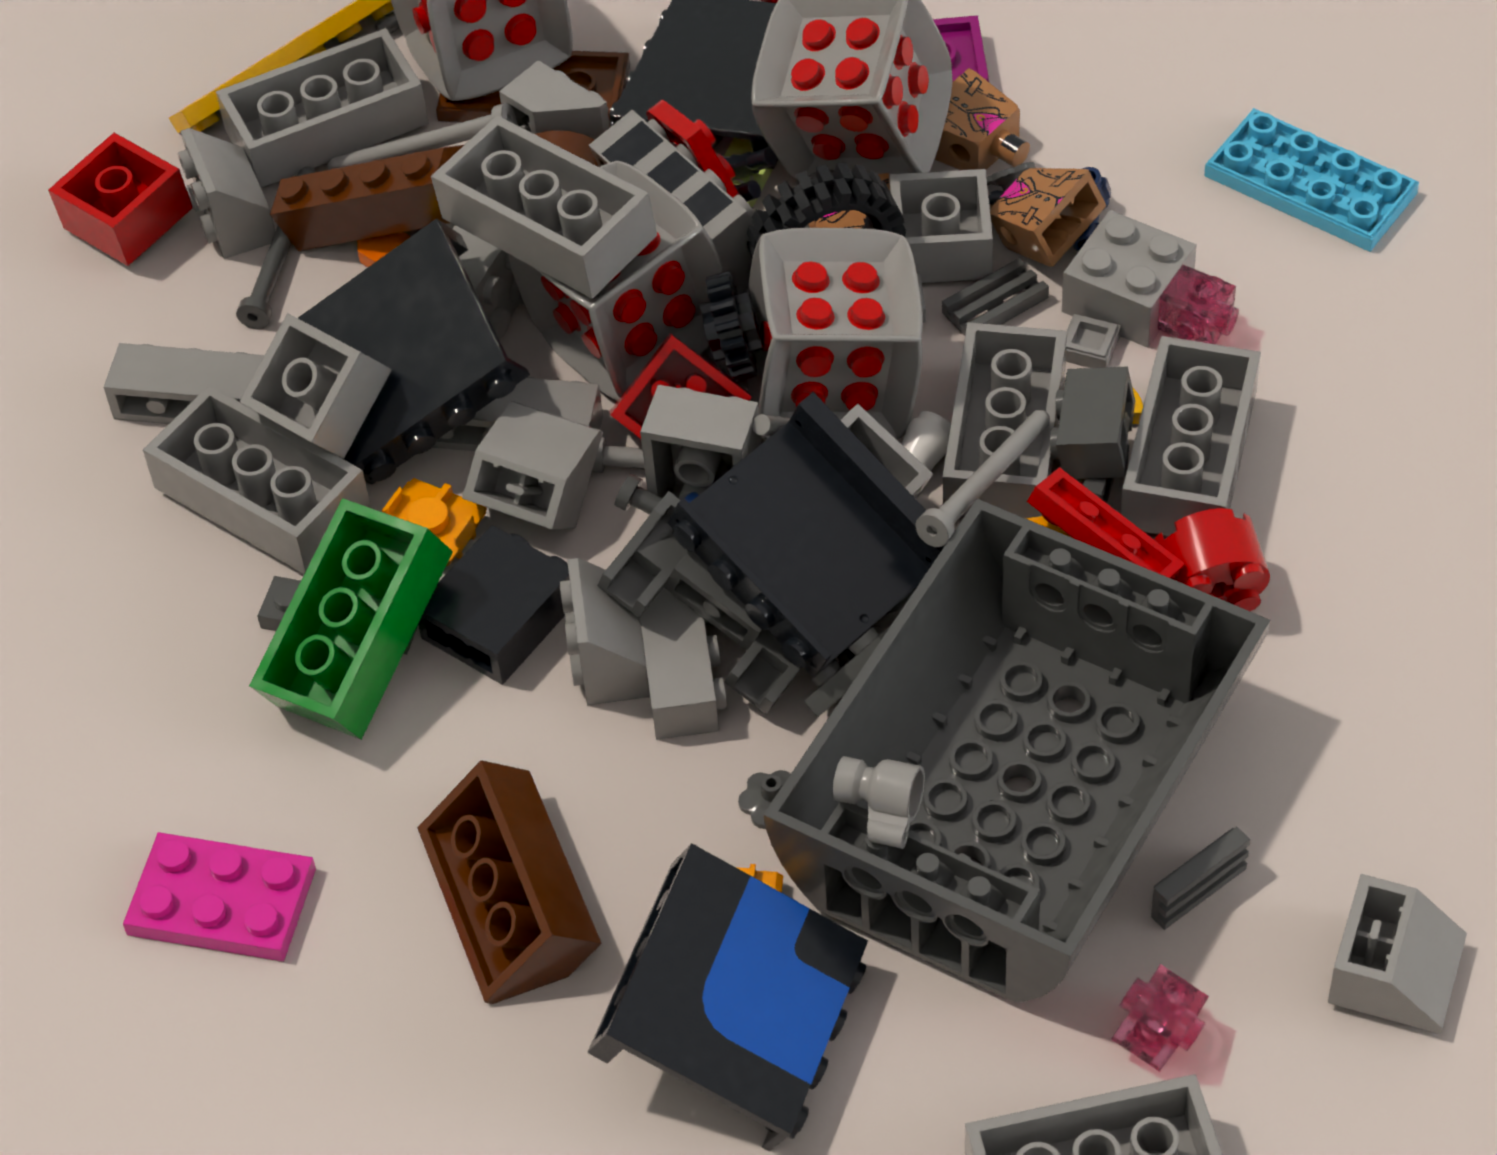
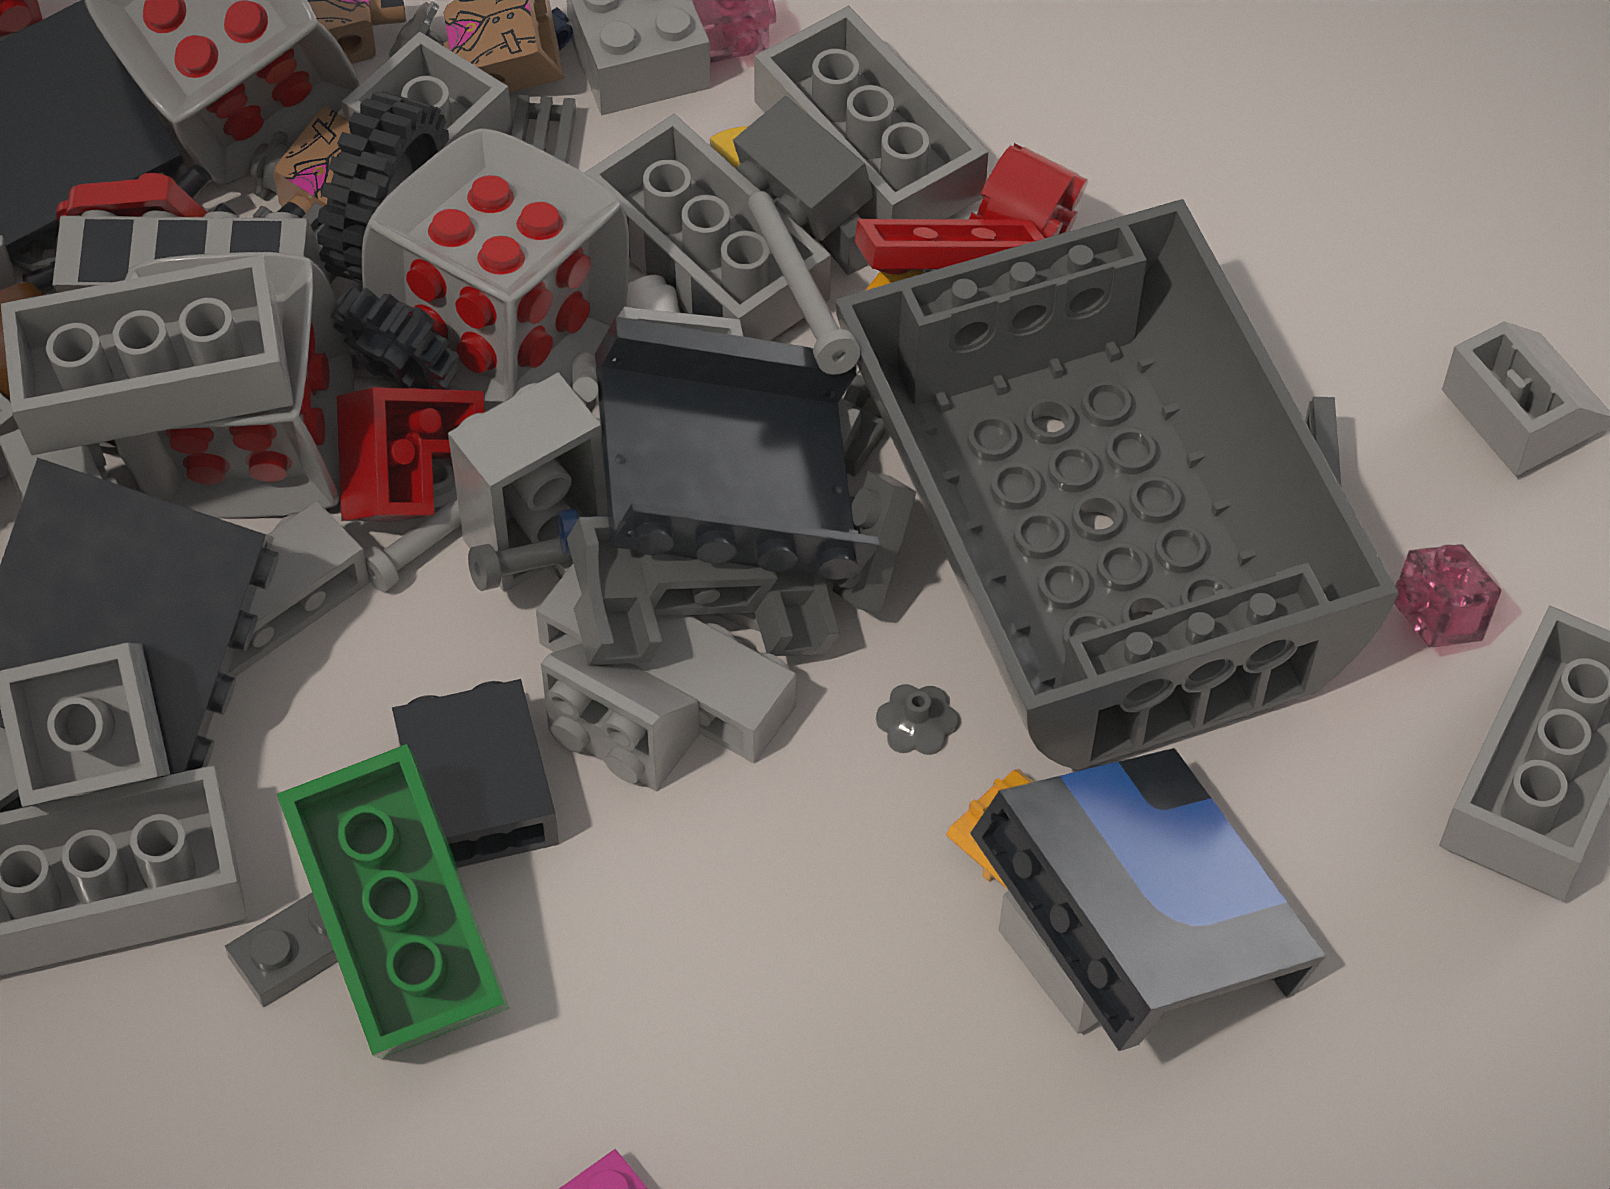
camera: 55 degrees left, 5 degrees up
(438, 510) = (296, 754): light orange piece -> none
(507, 883) = (814, 998): reddish brown slope -> none
(534, 466) = (359, 622): light grey slope -> none
(892, 796) = (1116, 589): light grey piece -> none
(1091, 341) = (656, 107): light grey tile -> none

